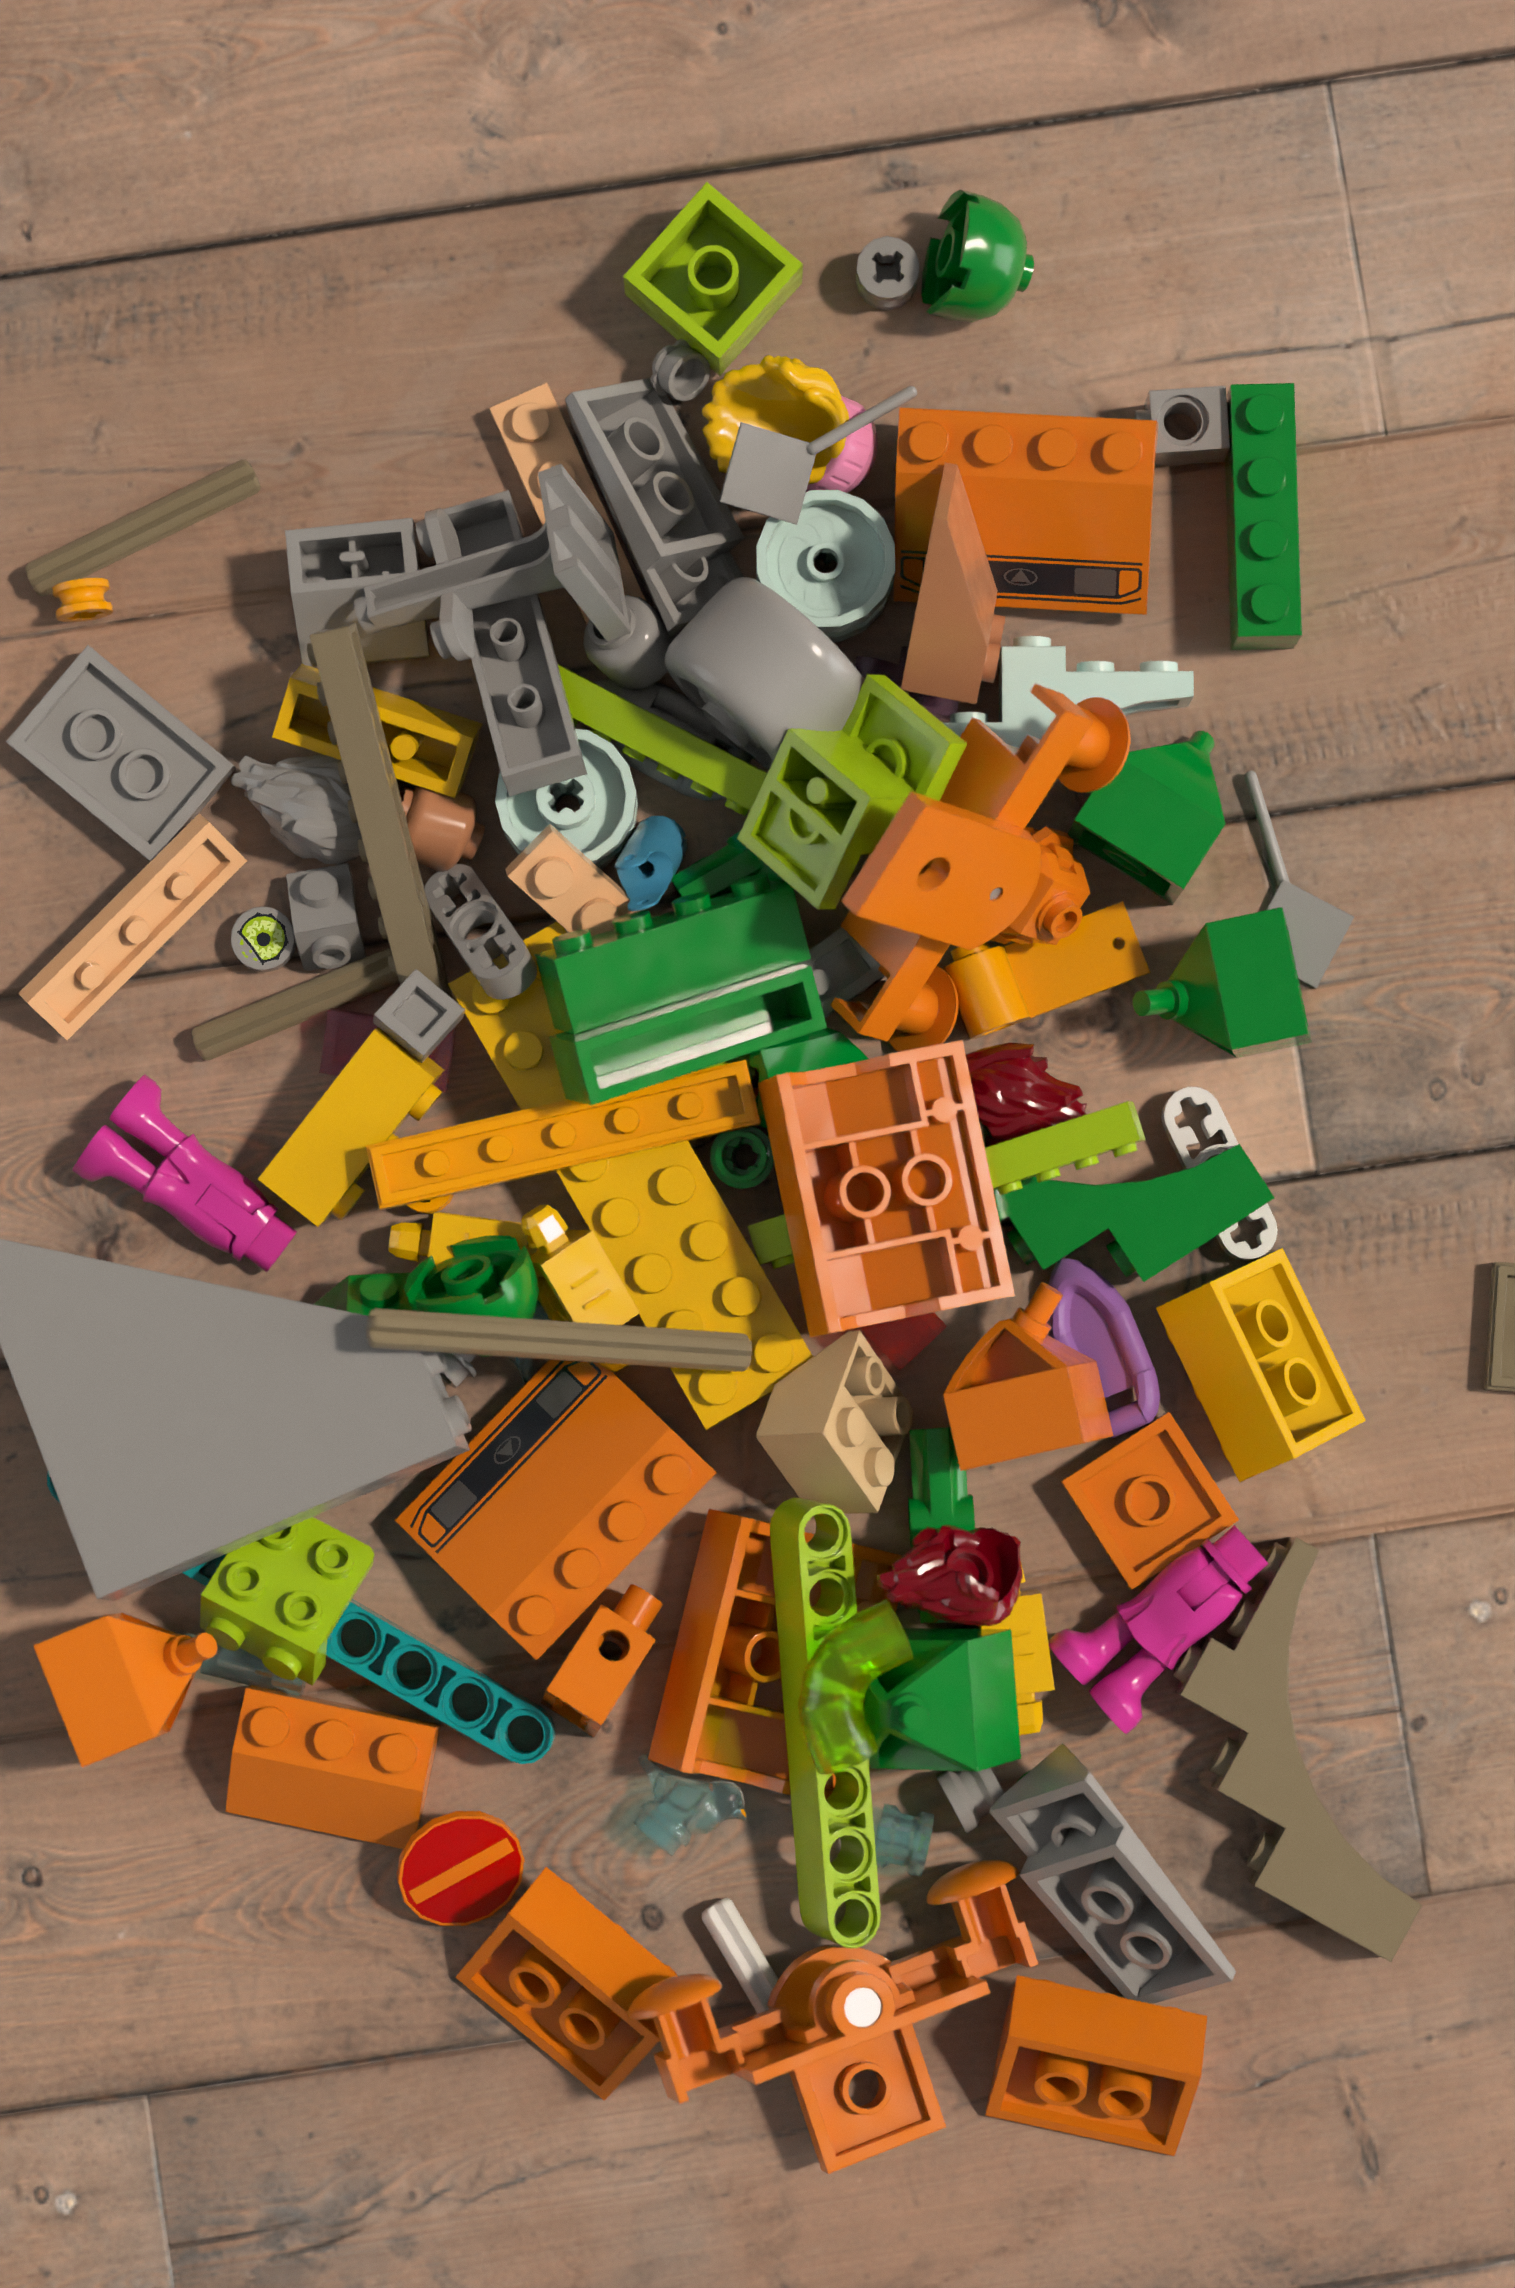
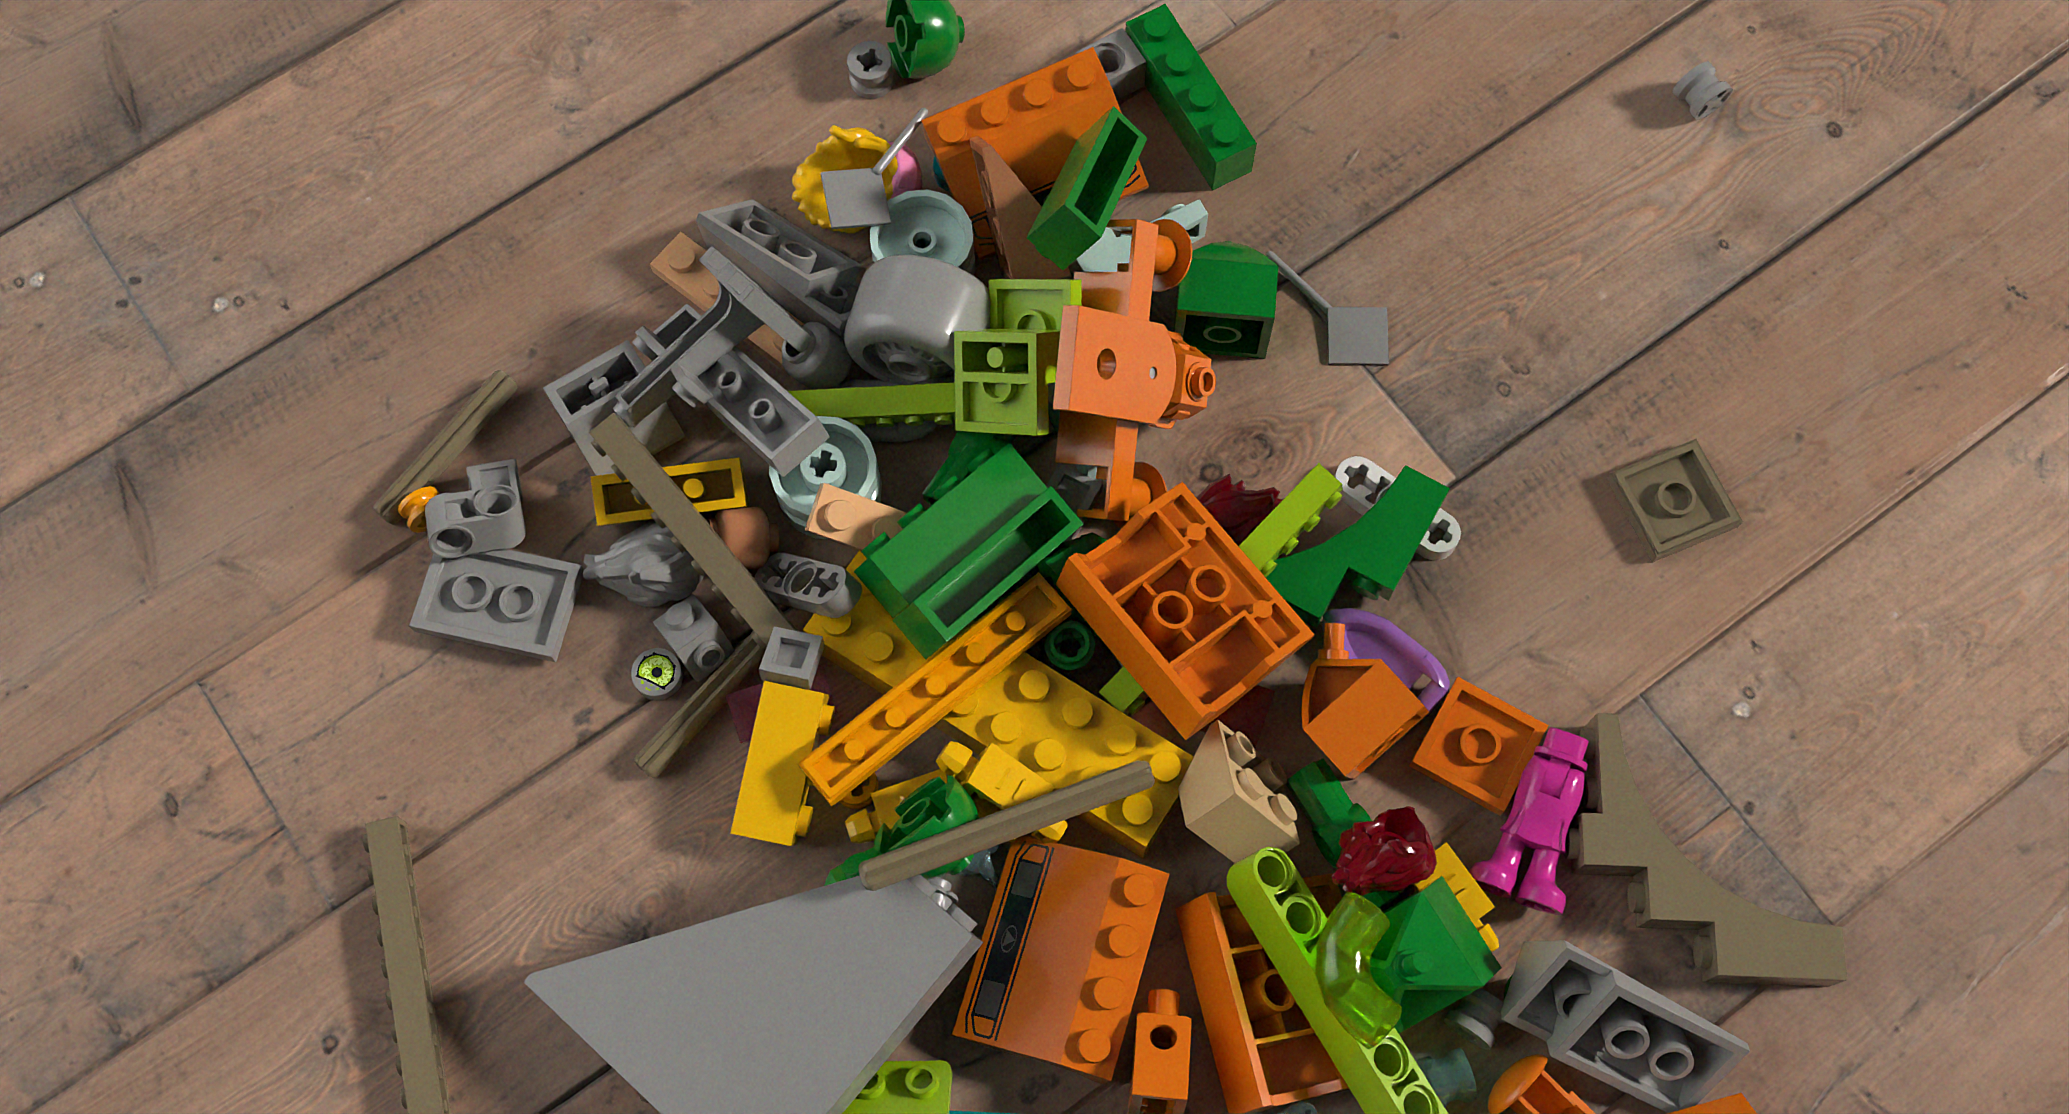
camera: 25 degrees left, 15 degrees down
(121, 648) = (481, 518): none -> light grey piece
(132, 926) = (557, 709): light nougat plate -> none
(189, 1182) = (681, 866): dark pink piece -> none
(651, 860) = (900, 498): dark azure piece -> none
(679, 372) = (765, 184): light grey plate -> none
(713, 278) = (758, 116): lime brick -> none
(1027, 980) = (1210, 436): light orange door -> none
(1044, 618) = (1087, 189): none -> green brick
(1236, 987) = (1346, 372): green piece -> none
(1260, 1365) = (1498, 617): yellow slope -> none

